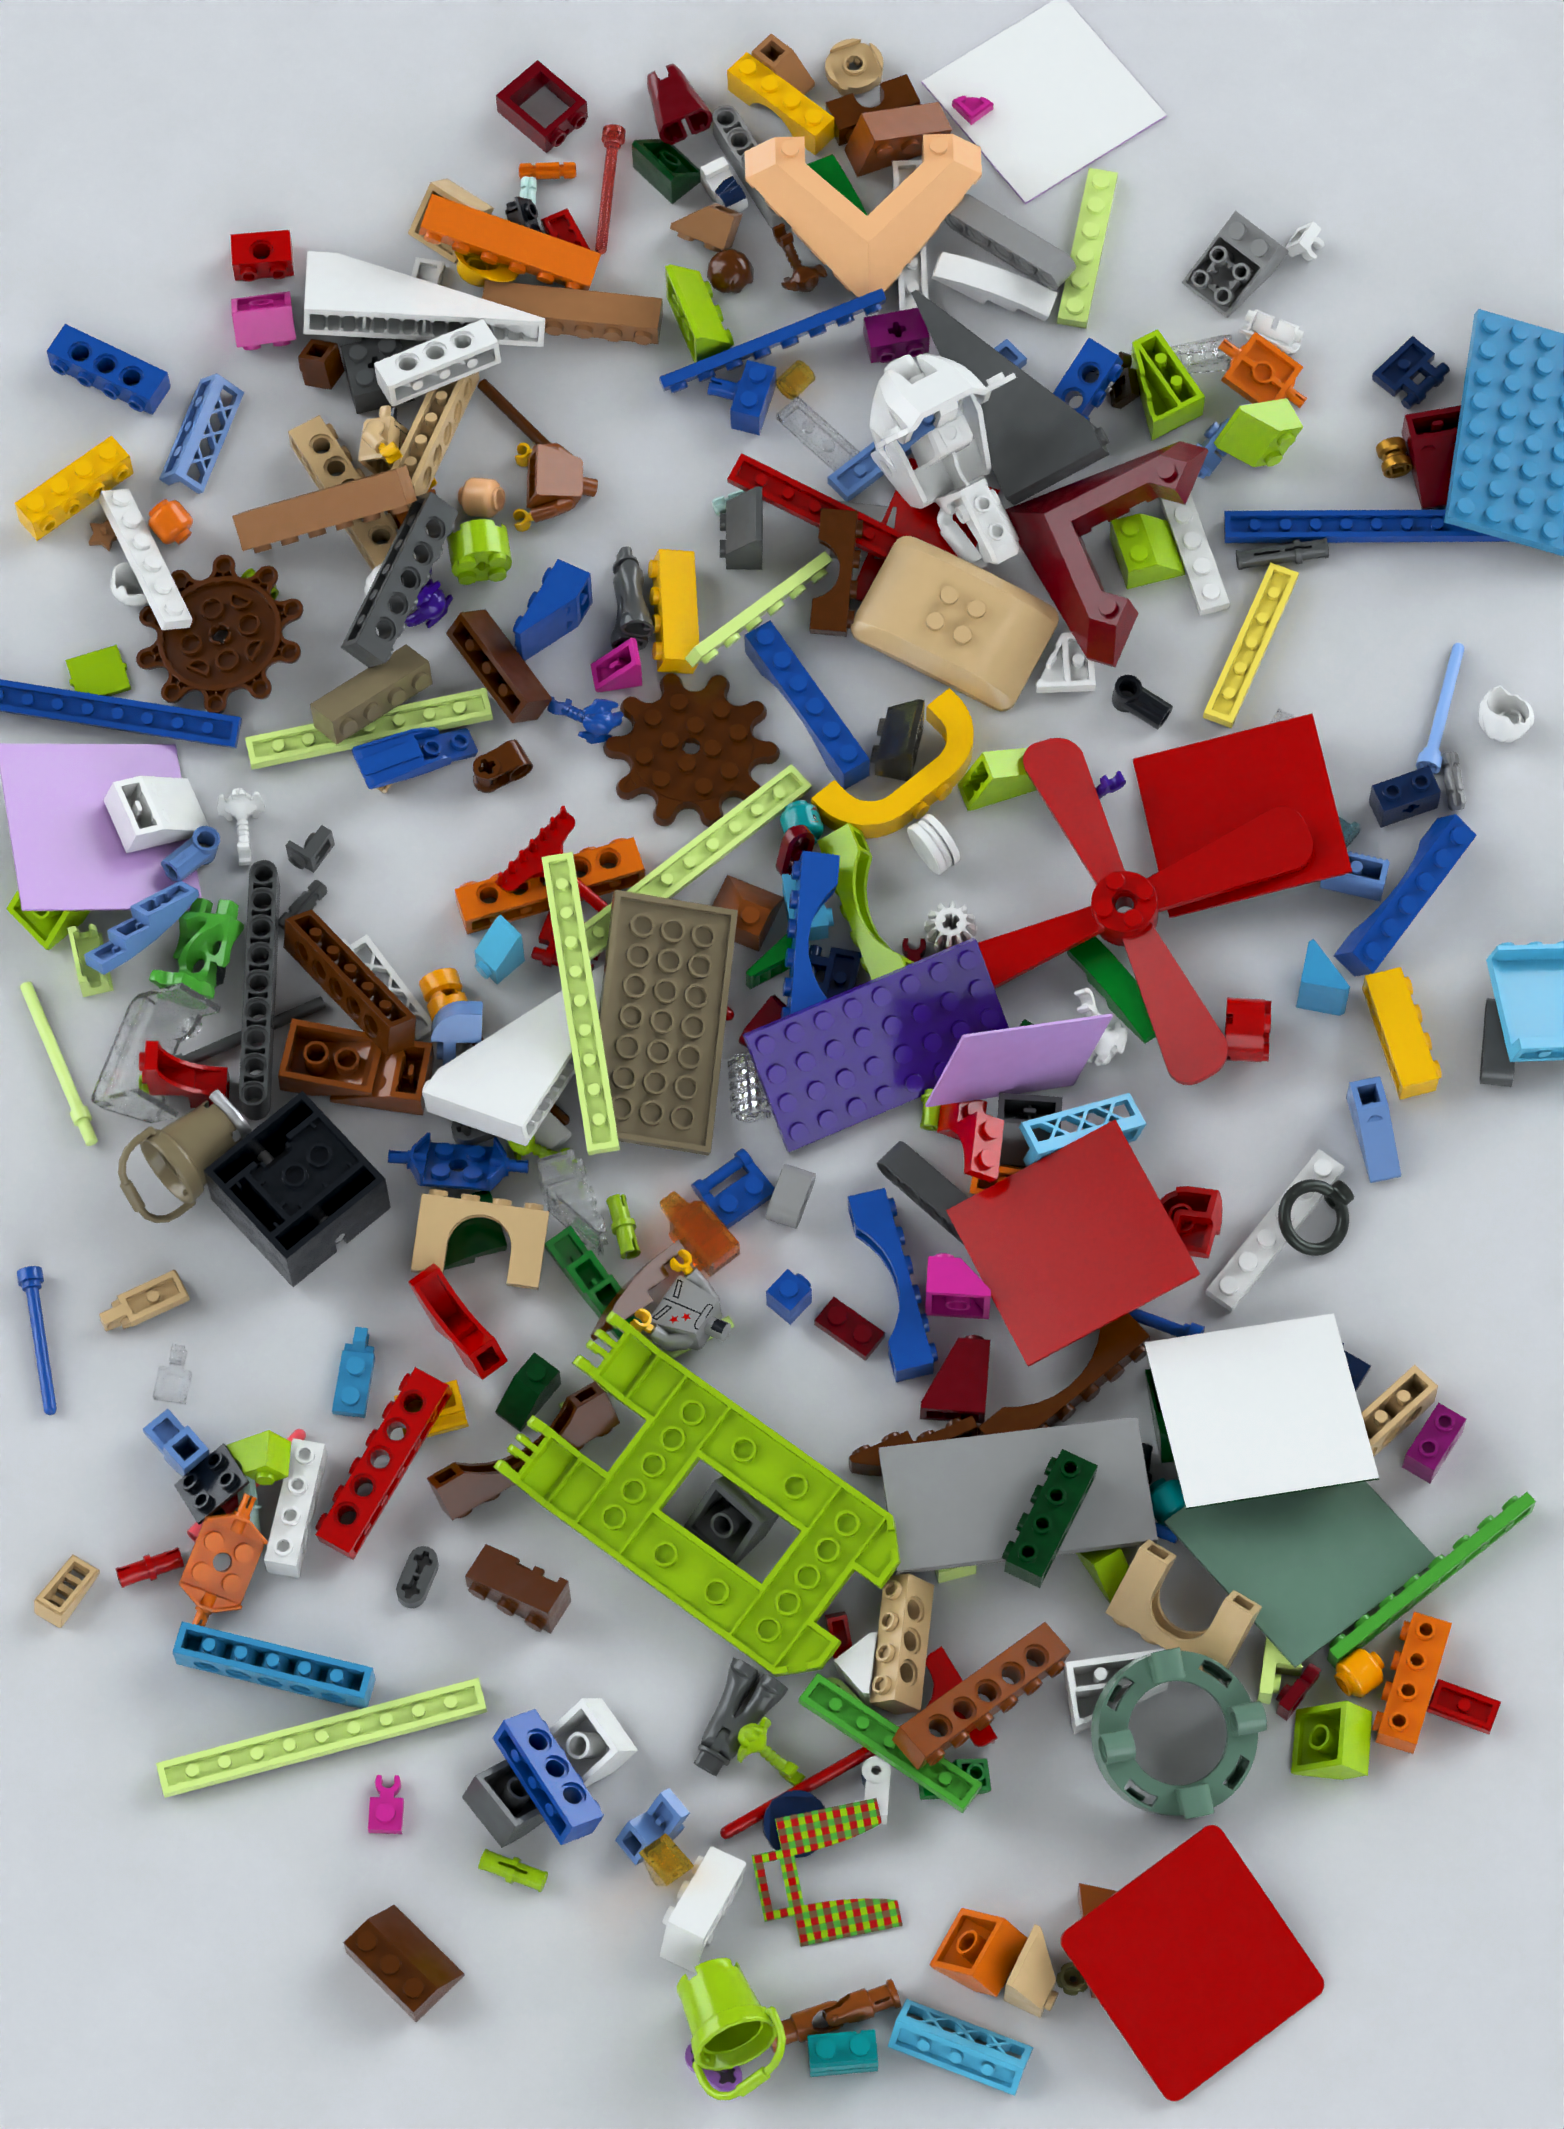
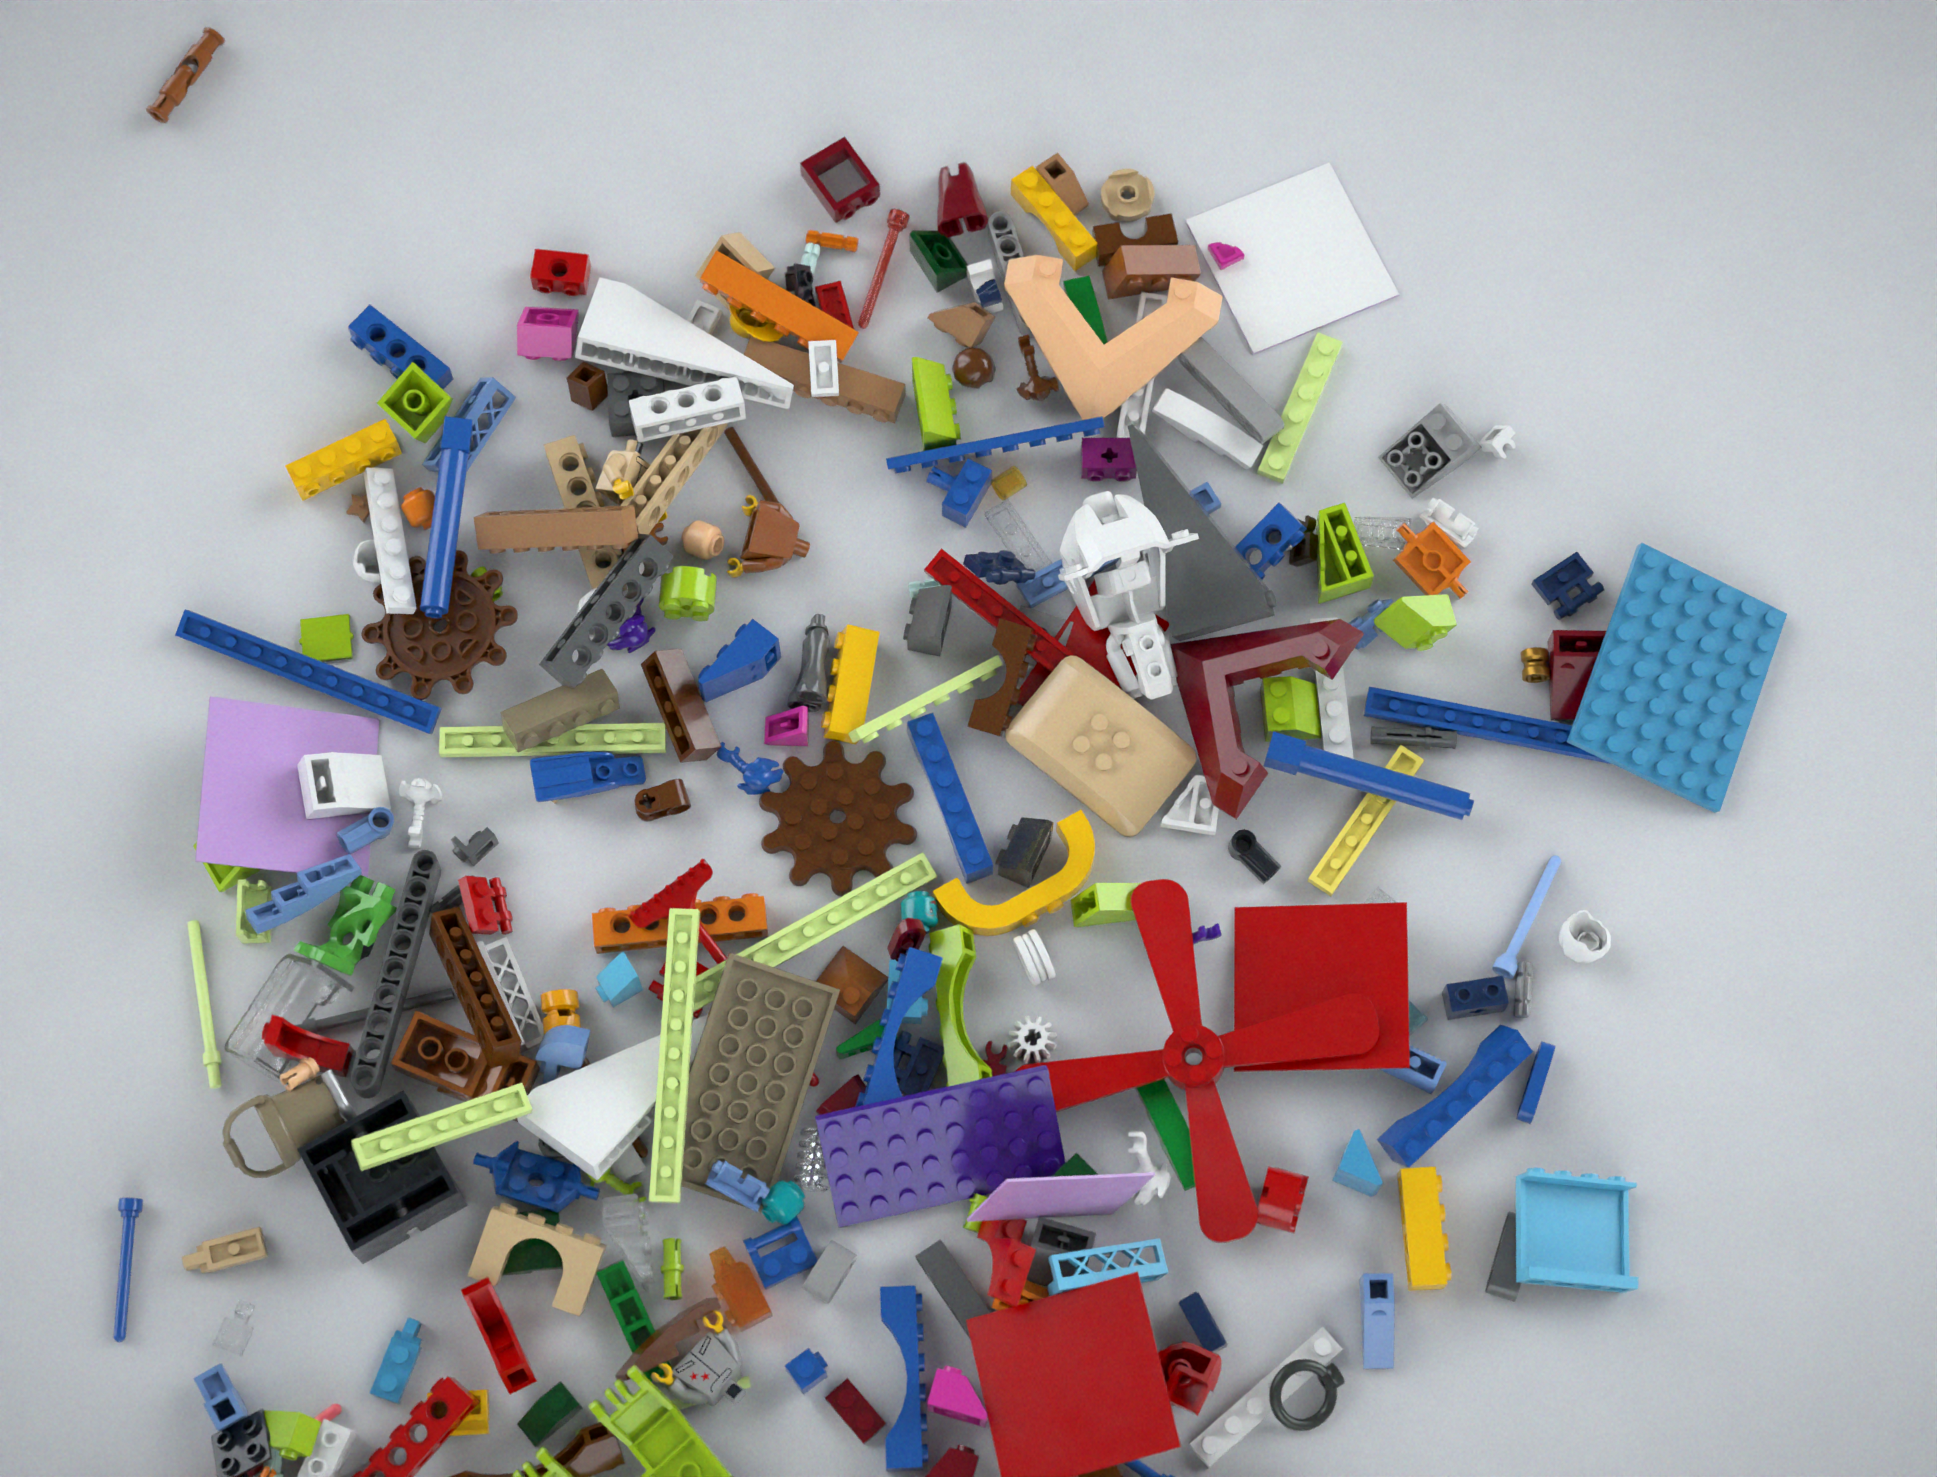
camera: 10 degrees right, 5 degrees up
(141, 414) = (416, 403): none -> lime slope
(190, 1097) = (305, 1070): none -> light nougat pin
(202, 519) = (446, 516): none -> blue brick
(338, 904) = (479, 908): none -> red plate
(352, 1116) = (441, 1126): none -> yellowish green plate
(572, 297) = (823, 368): none -> white plate
(661, 1119) = (727, 1180): none -> medium blue hinge
(725, 1135) = (783, 1202): none -> teal head
(806, 463) = (998, 567): none -> dark blue plate
(1158, 591) = (1293, 756): none -> blue brick
(1193, 1165) = (1202, 1322): none -> dark blue slope
(1486, 868) = (1535, 1082): none -> blue beam

